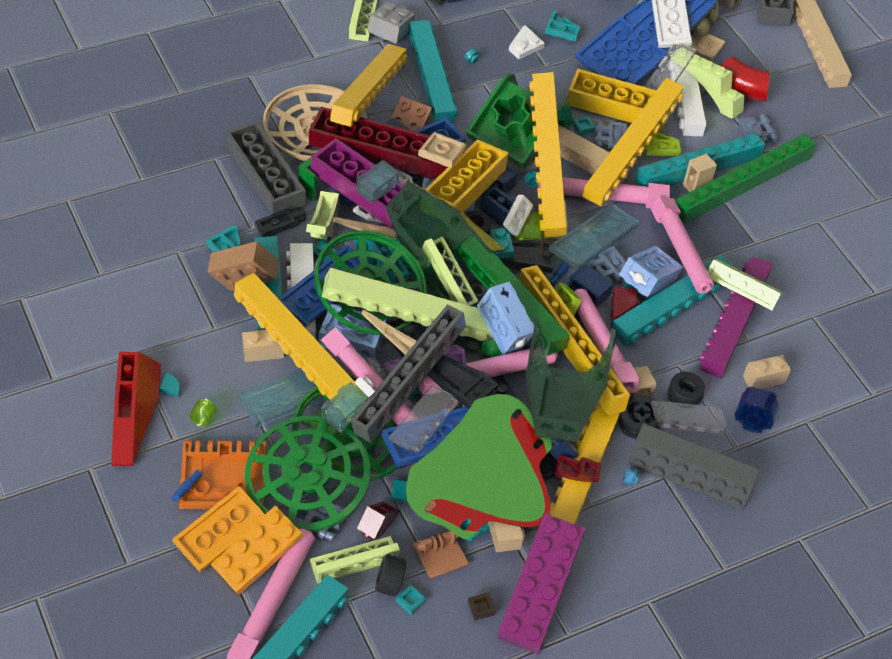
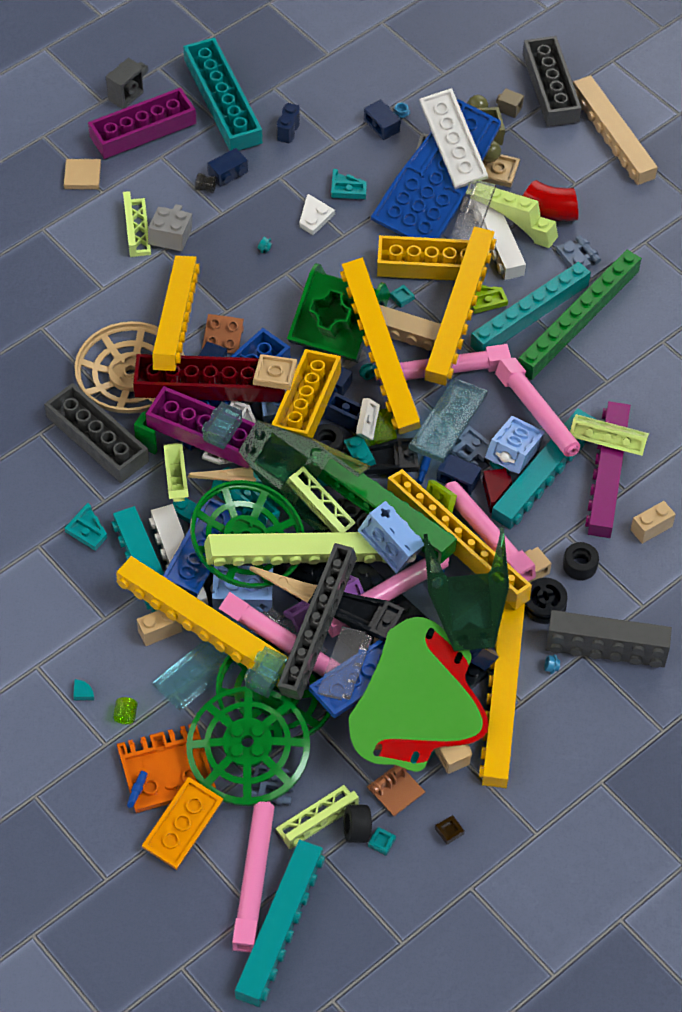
camera: 10 degrees left, 5 degrees up
(134, 404) = (56, 720): red wedge -> none
(241, 261) = (113, 548): medium nougat brick -> none
(257, 550) = (225, 833): light orange plate -> none
(280, 221) = (130, 487): black hinge -> none
(365, 385) = (279, 645): white plate -> none
(377, 519) = (327, 772): slope -> none
(399, 491) = (340, 737): teal tile -> none
(432, 71) = (229, 275): teal brick -> none
(491, 348) = (383, 569): green plant -> none
(541, 583) = (500, 794): magenta brick -> none
(583, 470) = (502, 672): dark red slope -> none
(614, 130) = (438, 300): sand blue plate -> none
(689, 417) = (591, 588): clear windscreen -> none
(699, 172) = (533, 323): tan brick -> none
(757, 409) = (653, 563): clear blue brick -> none

